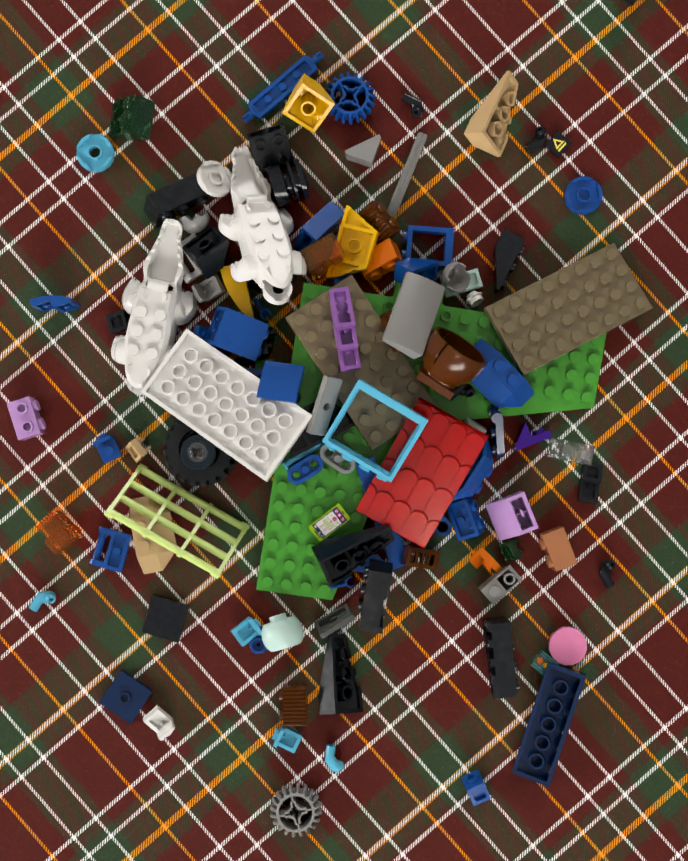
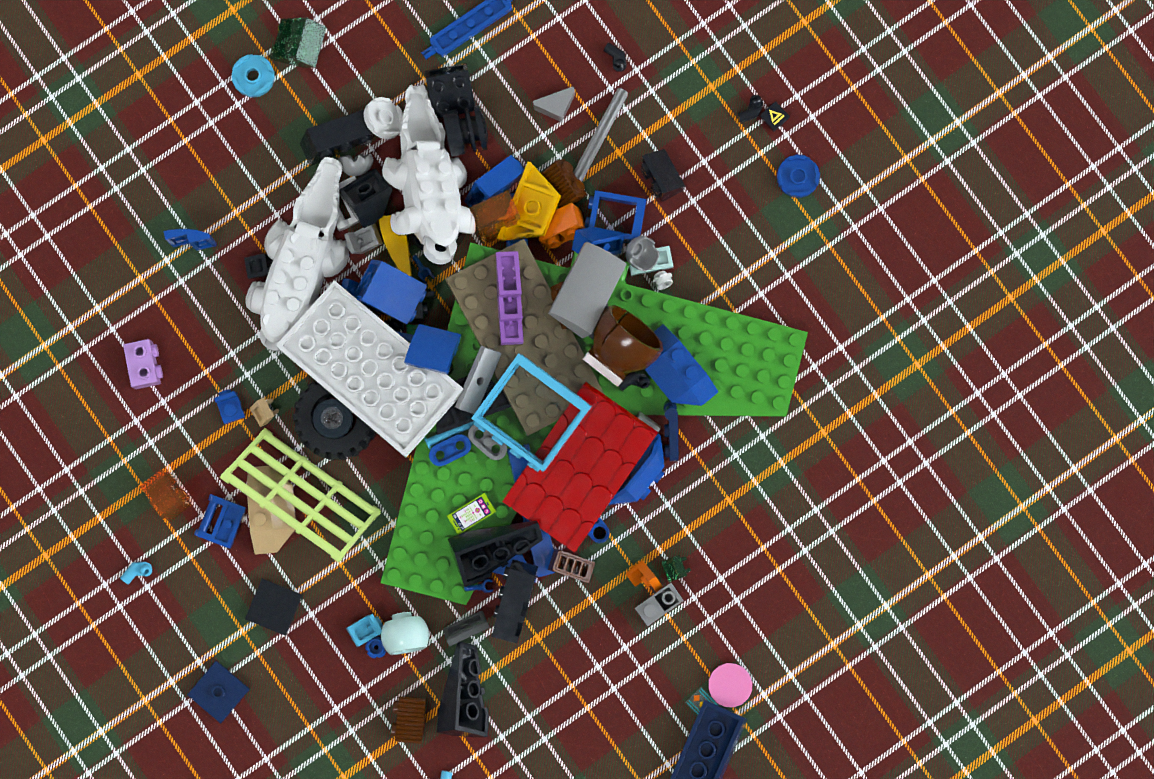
camera: 15 degrees right, 5 degrees down
(160, 722) = (254, 724): white bracket -> none
(287, 738) = (397, 757): medium azure bracket -> none
(308, 104) = (497, 45): yellow slope -> none
(360, 87) = (535, 27): blue gear -> none
(464, 205) = (662, 175): none -> black slope
(466, 518) = (627, 527): blue bracket -> none
(490, 121) = (700, 85): tan wedge -> none
(500, 657) = (650, 689): black wedge -> none
(504, 254) = (702, 231): black slope -> none
(511, 516) = (679, 528): lavender slope -> none
(525, 439) = (704, 444): dark purple slope -> none
(557, 548) = (728, 571): nougat brick -> none
(567, 309) = (765, 301): dark tan plate -> none
(571, 451) = (753, 462): clear brick -> none
(589, 483) = (774, 501): black slope -> none
(604, 572) = (781, 605): black arm -> none

